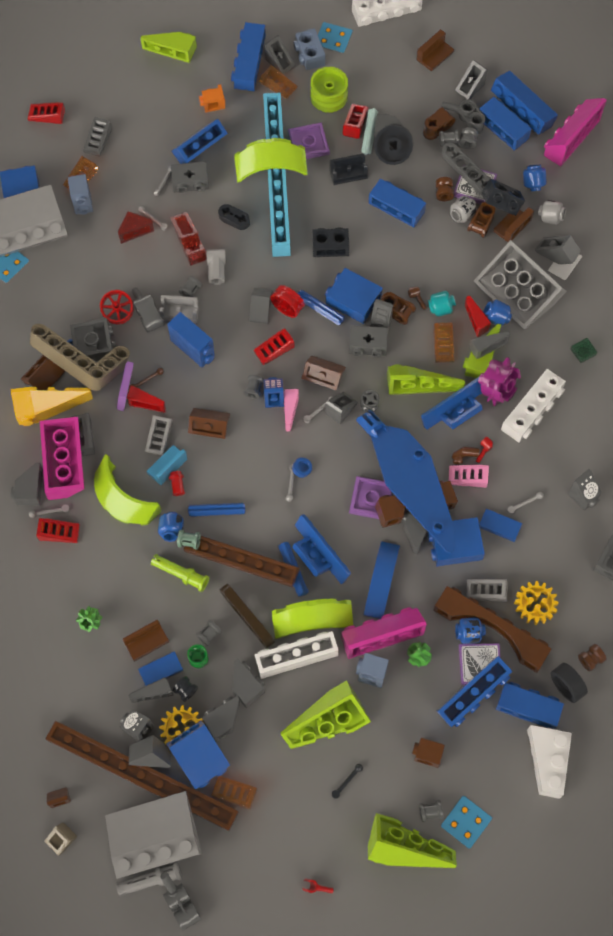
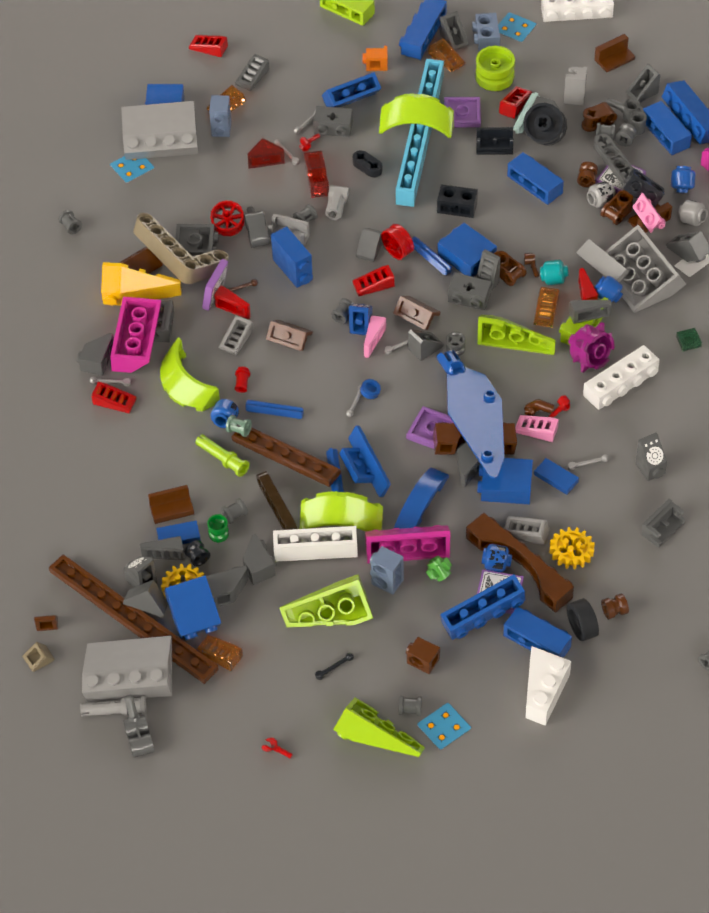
camera: 15 degrees right, 15 degrees down
(89, 618) = (116, 477): bright green gear -> none
(167, 463) = (245, 357): dark azure panel -> none
(168, 204) = (305, 143): none -> red hand
(411, 95) = (575, 86): none -> light grey hinge
(455, 408) = (540, 364): blue bracket -> none
(483, 282) = (601, 261): none -> light grey tile
(515, 225) = (648, 213): none -> bright pink hinge

